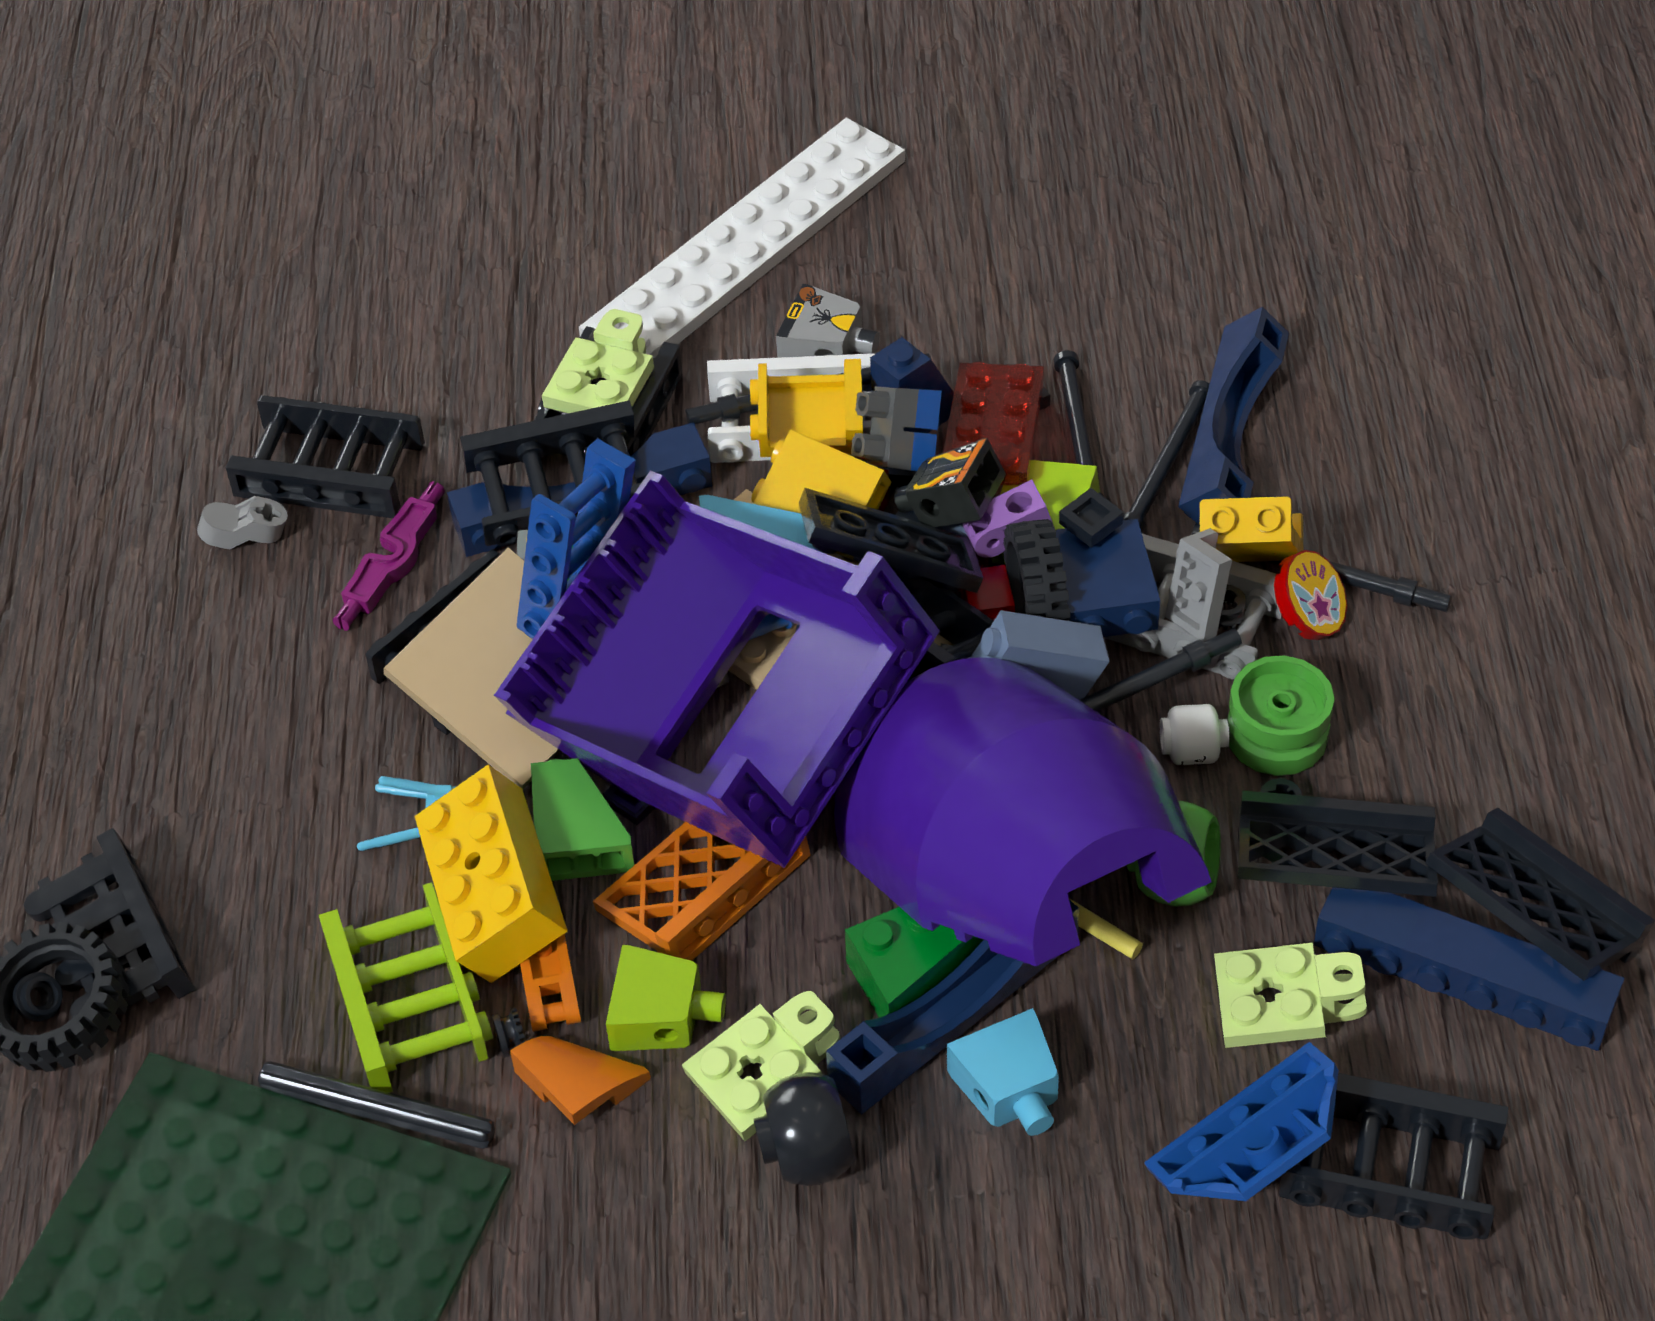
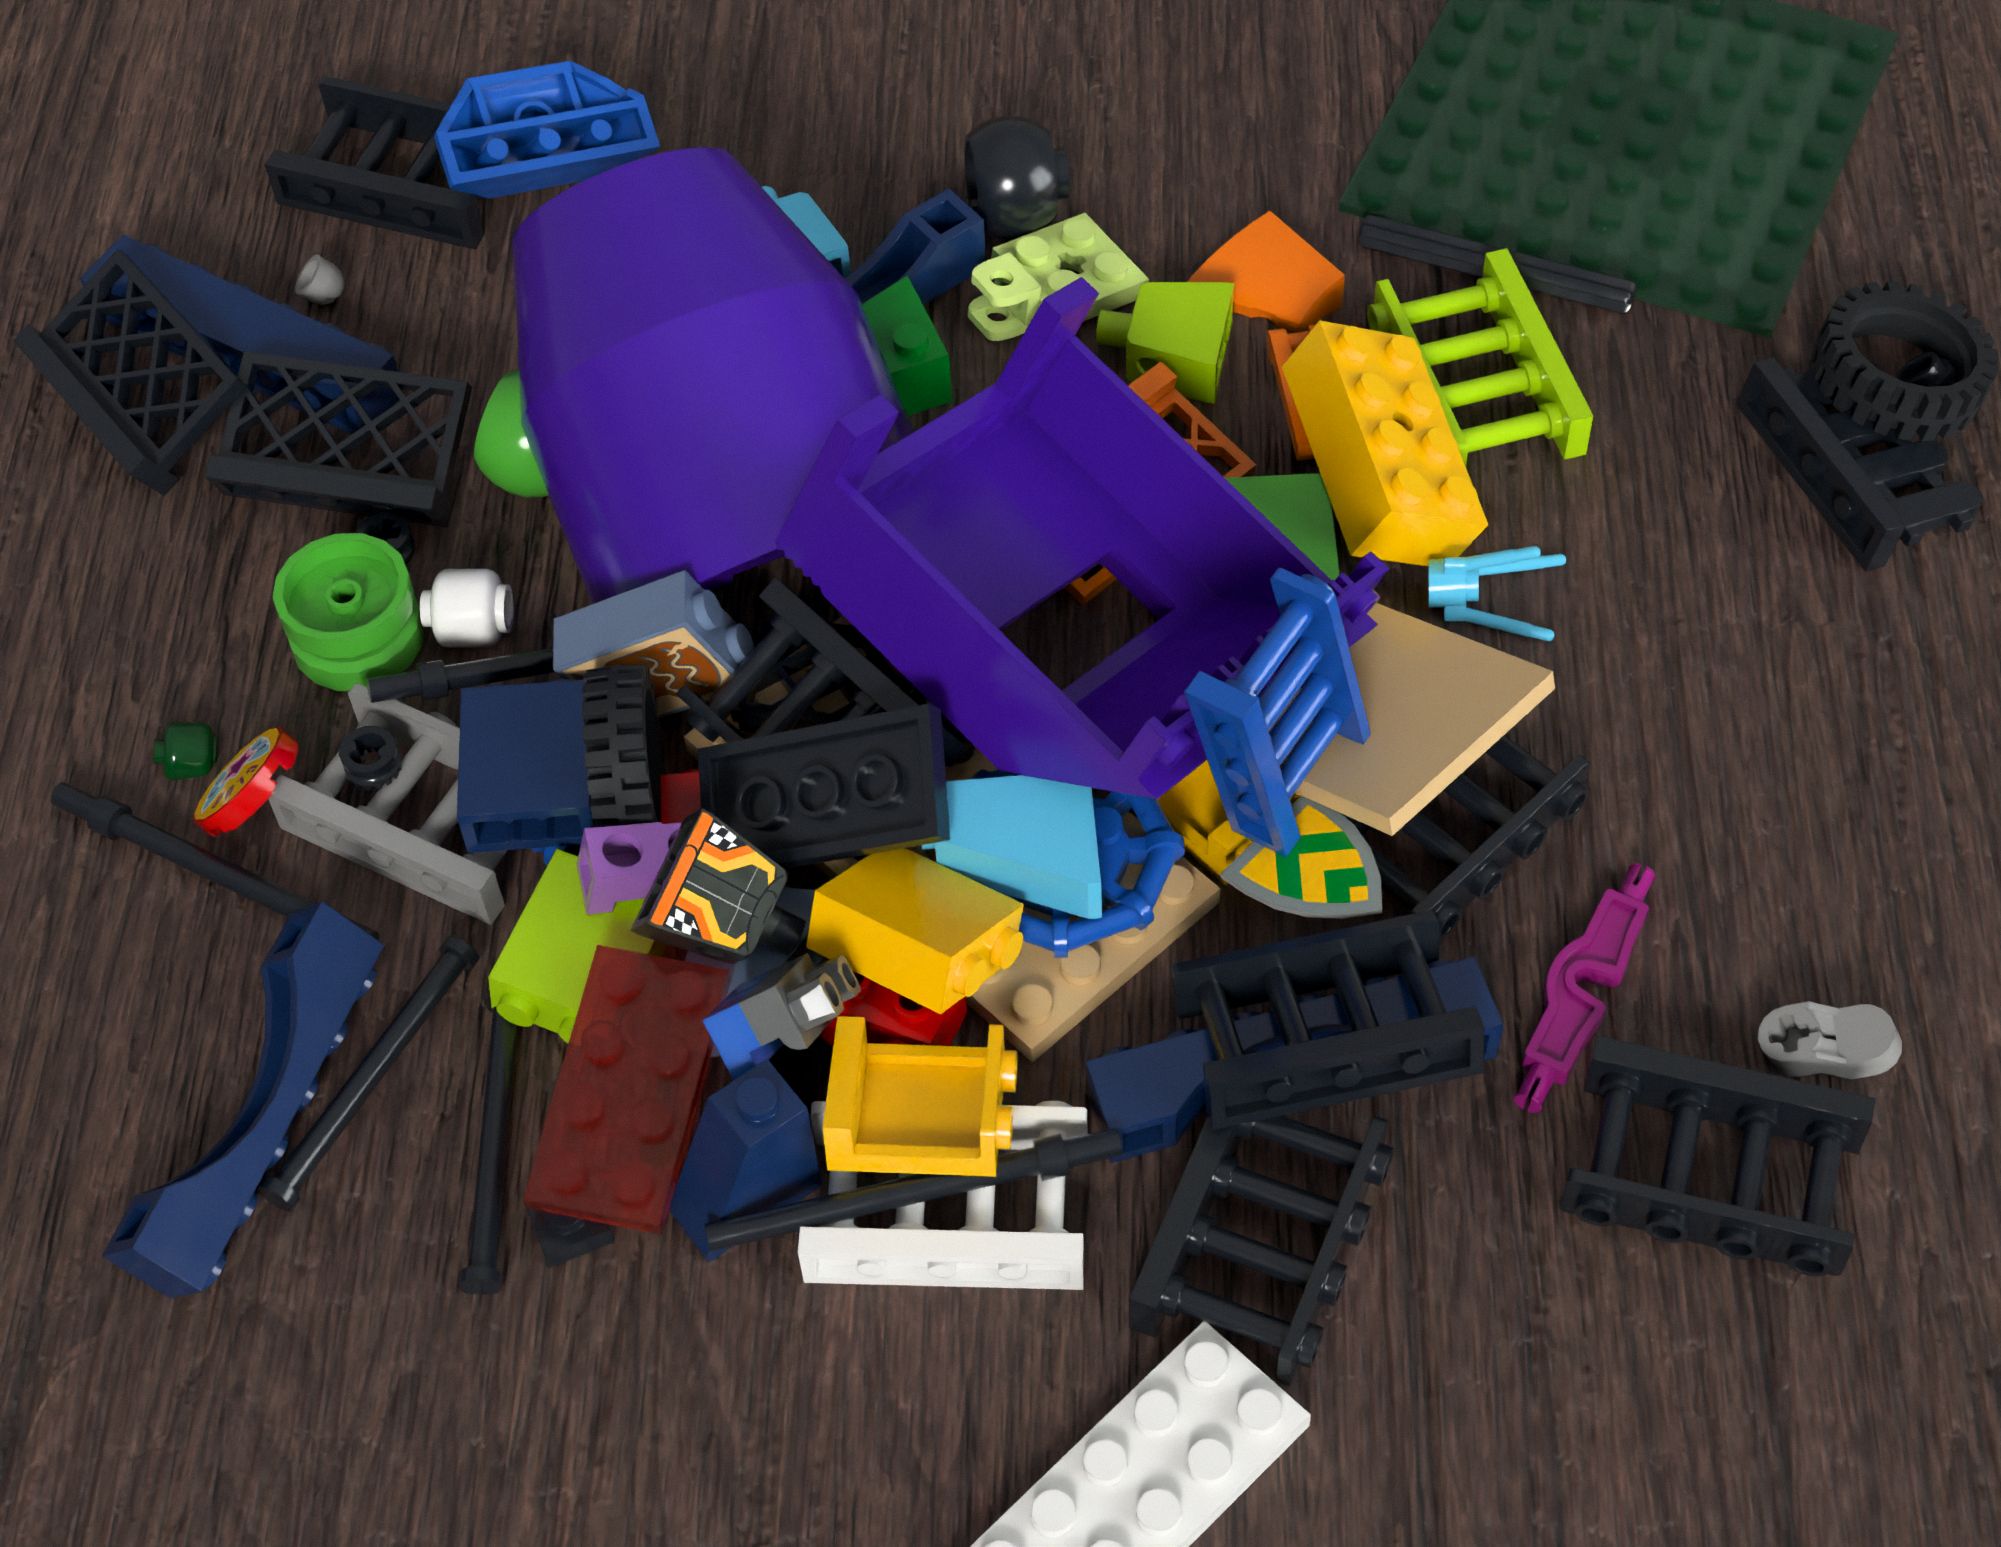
camera: 175 degrees left, 5 degrees up
(508, 1031) = (1349, 310): black bush -> none
(614, 355) = (1250, 1254): yellowish green plate -> none
(824, 326) = (879, 1356): light grey torso -> none
(1091, 517) = (524, 788): black plate -> none
(1198, 585) = (405, 733): light grey bracket -> none
(1253, 527) = (297, 826): yellow panel -> none
(1306, 997) = (434, 318): yellowish green plate -> none
(1374, 648) = (185, 750): none -> dark green piece
(1421, 1026) = (319, 281): none -> light grey hinge

